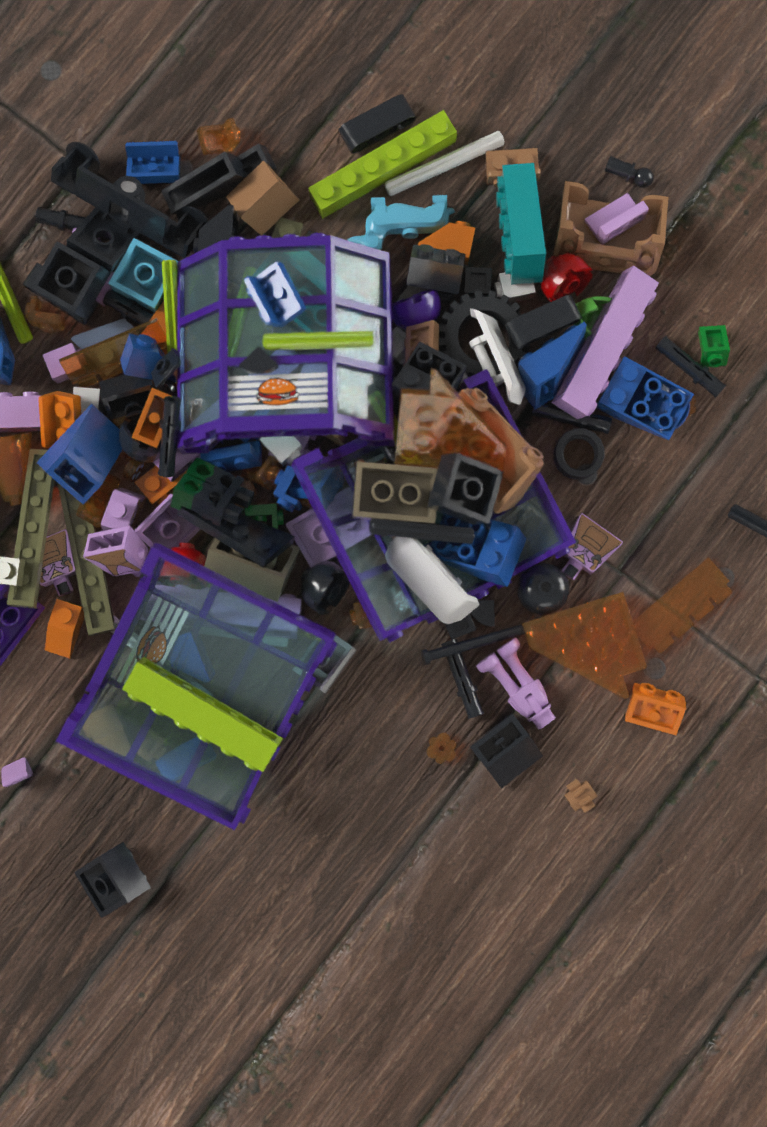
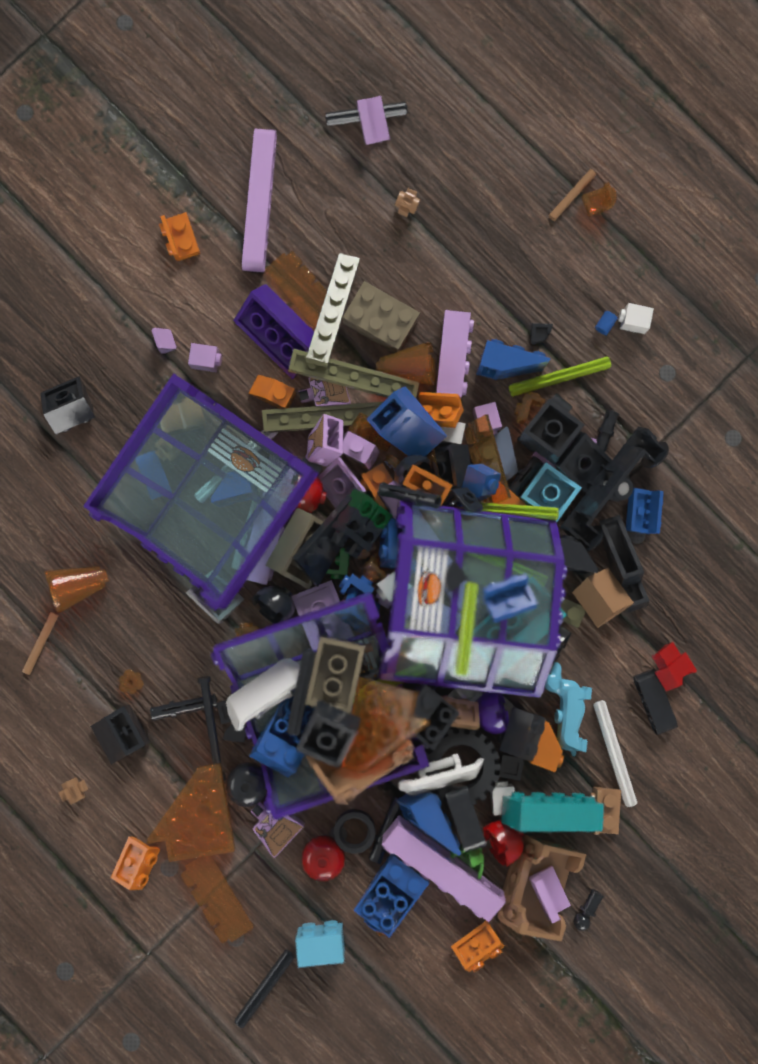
camera: 90 degrees right, 0 degrees up
(31, 717) = (204, 357): none -> lavender brick
(202, 714) = (182, 493): lime brick -> none
(219, 138) = (659, 568): clear orange bracket -> none
(333, 107) = (672, 666): none -> red piece
(333, 834) = (74, 585): none -> clear orange cone
(382, 164) = (620, 702): lime brick -> none
(411, 867) = (40, 643): none -> medium nougat bar
(531, 697) = (159, 758): lavender piece -> none
(616, 487) = (323, 858): none -> red cylinder
(690, 292) = (478, 947): none -> orange bracket
(690, 366) = (415, 937): black pin -> none
(713, 473) = (320, 944): none -> medium azure brick
(714, 346) = (430, 960): green bracket -> none

